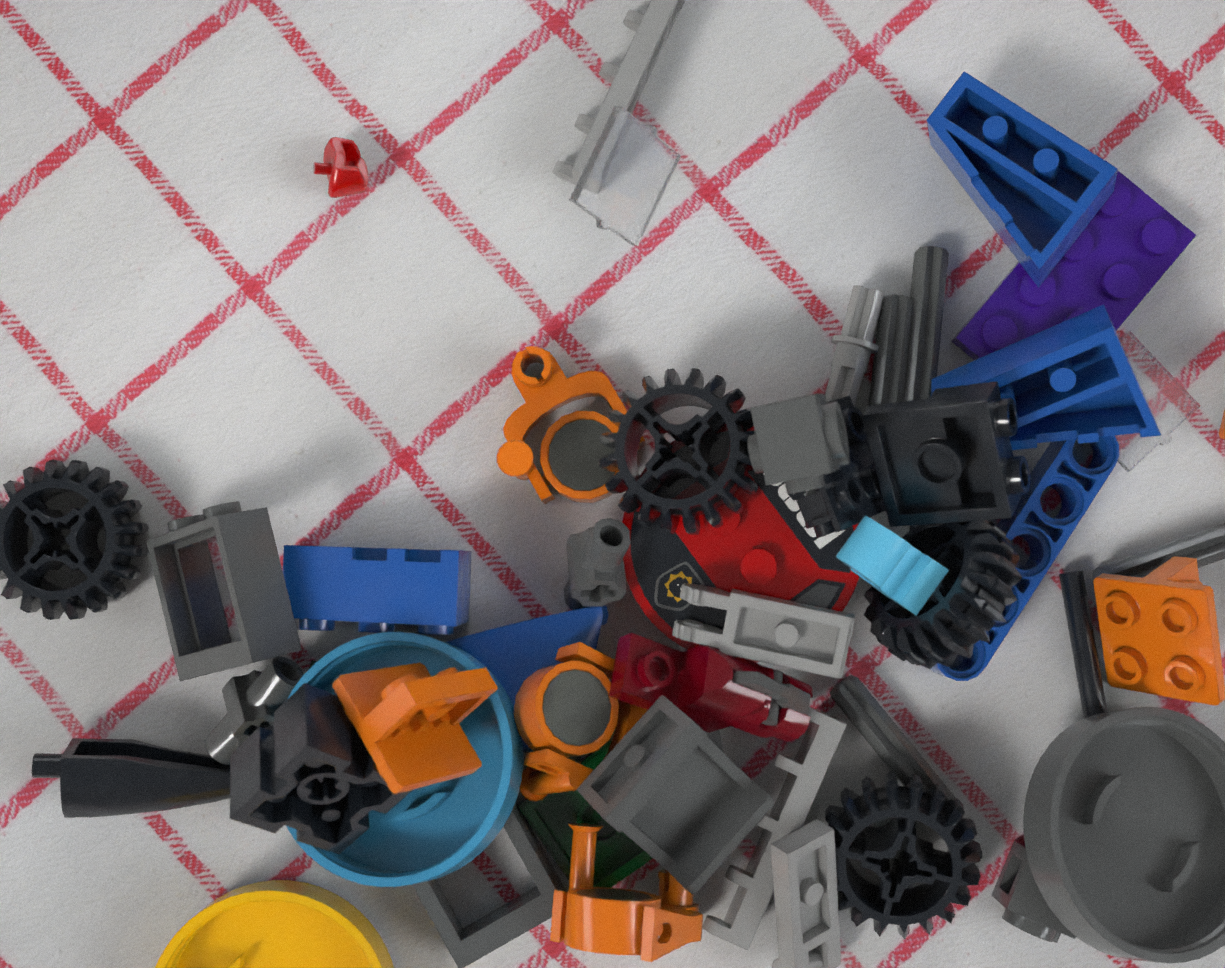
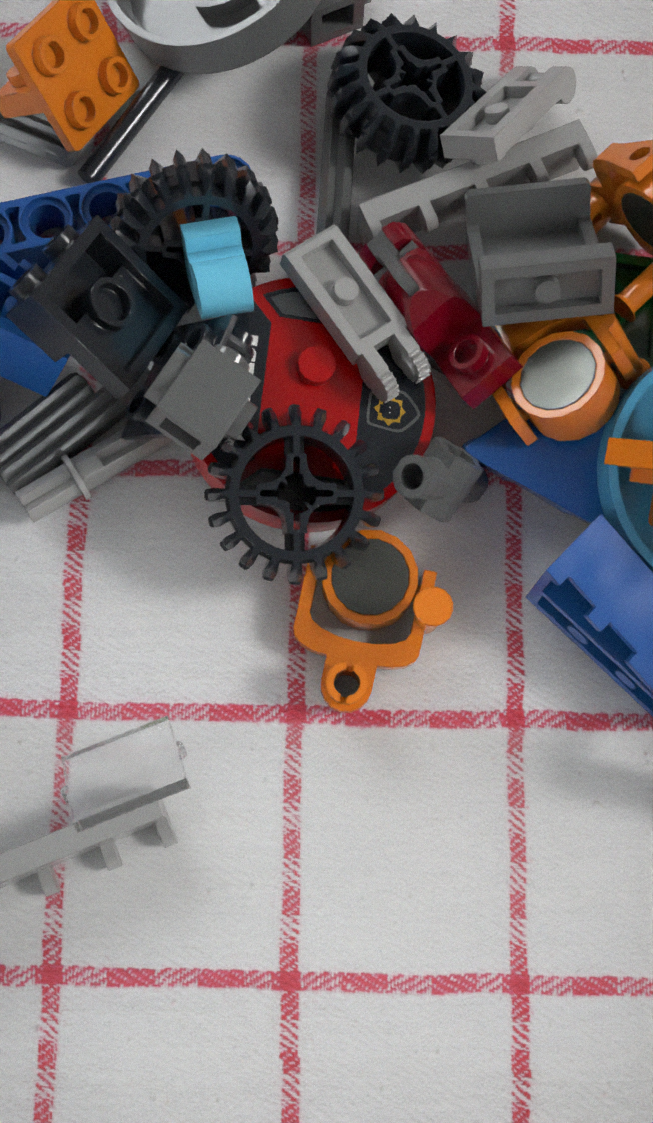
camera: 145 degrees left, 10 degrees down
(343, 167) = (350, 1012): red piece -> none

